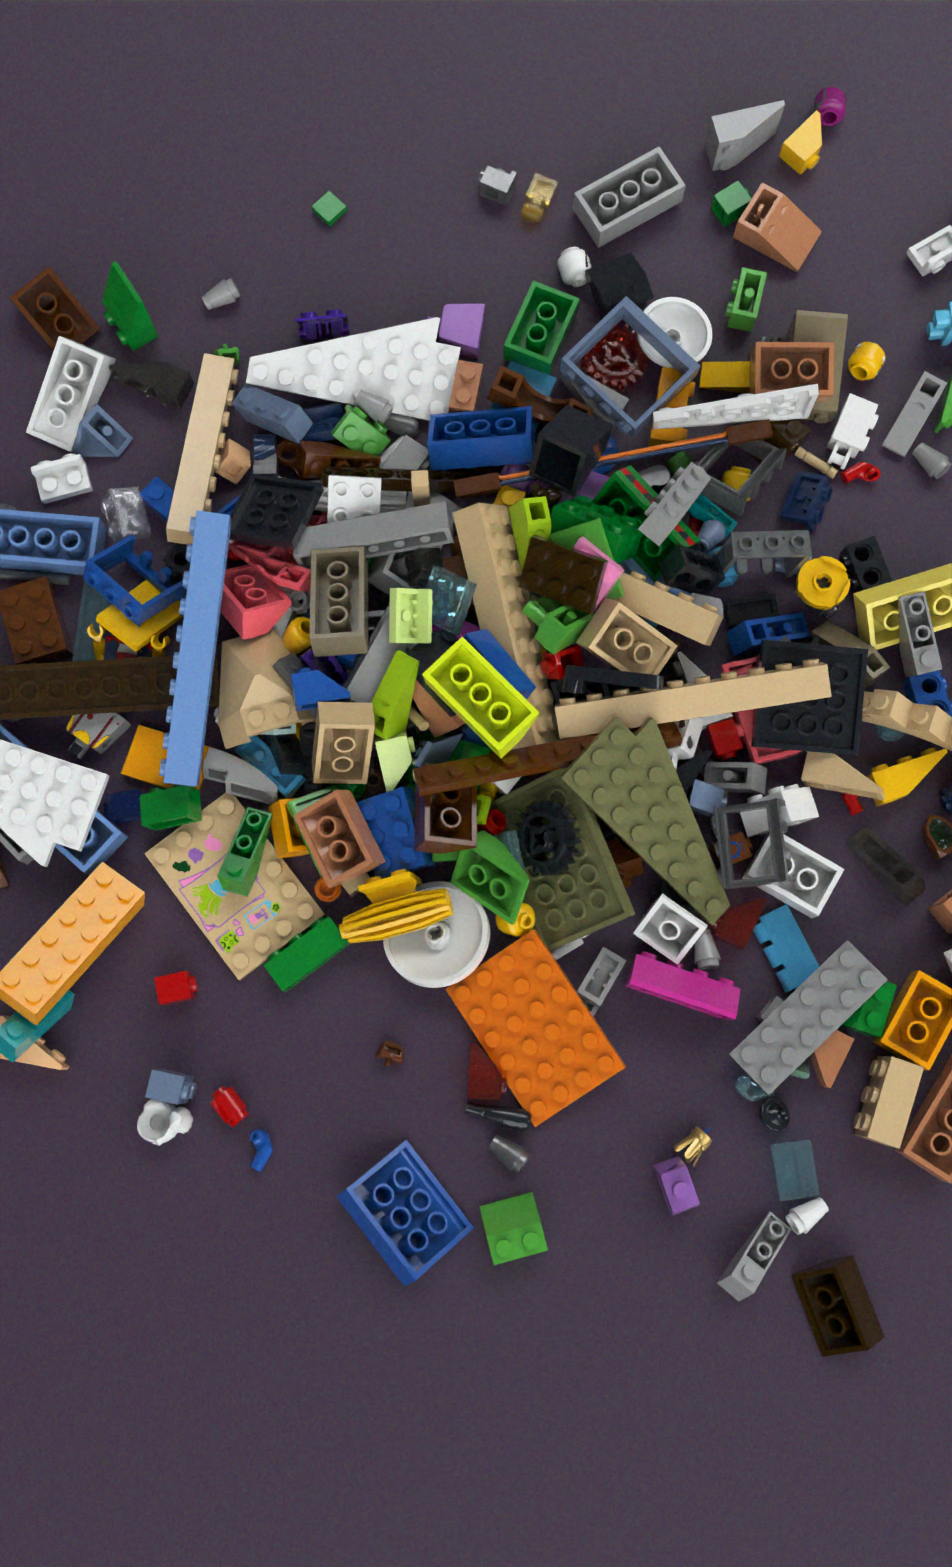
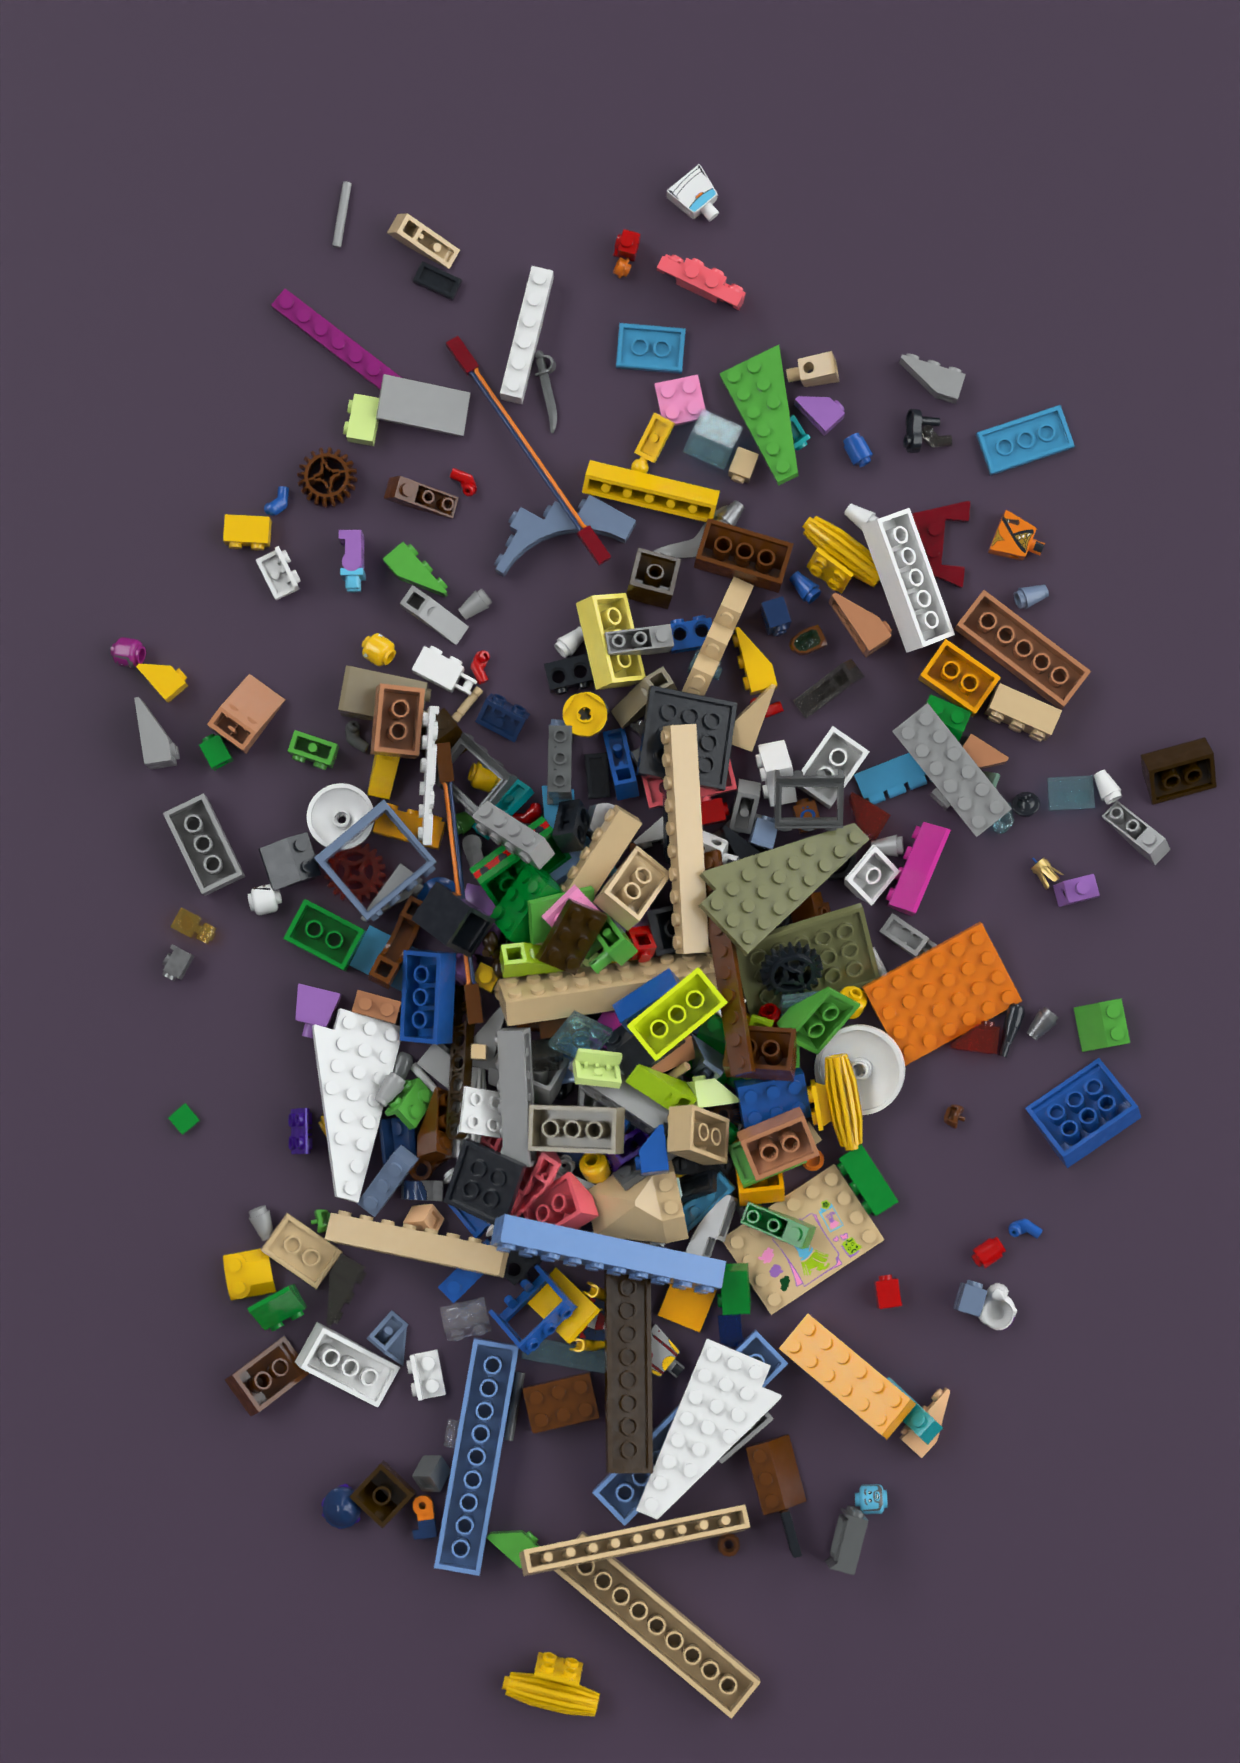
camera: 90 degrees left, 5 degrees up
(165, 285) = (248, 1274): none -> yellow slope
(192, 333) = (301, 1250): none -> tan tile
(576, 679) = (657, 931): black beam -> none
(710, 534) = (533, 806): sand blue cone -> none
(900, 565) = (569, 643): none -> white cone

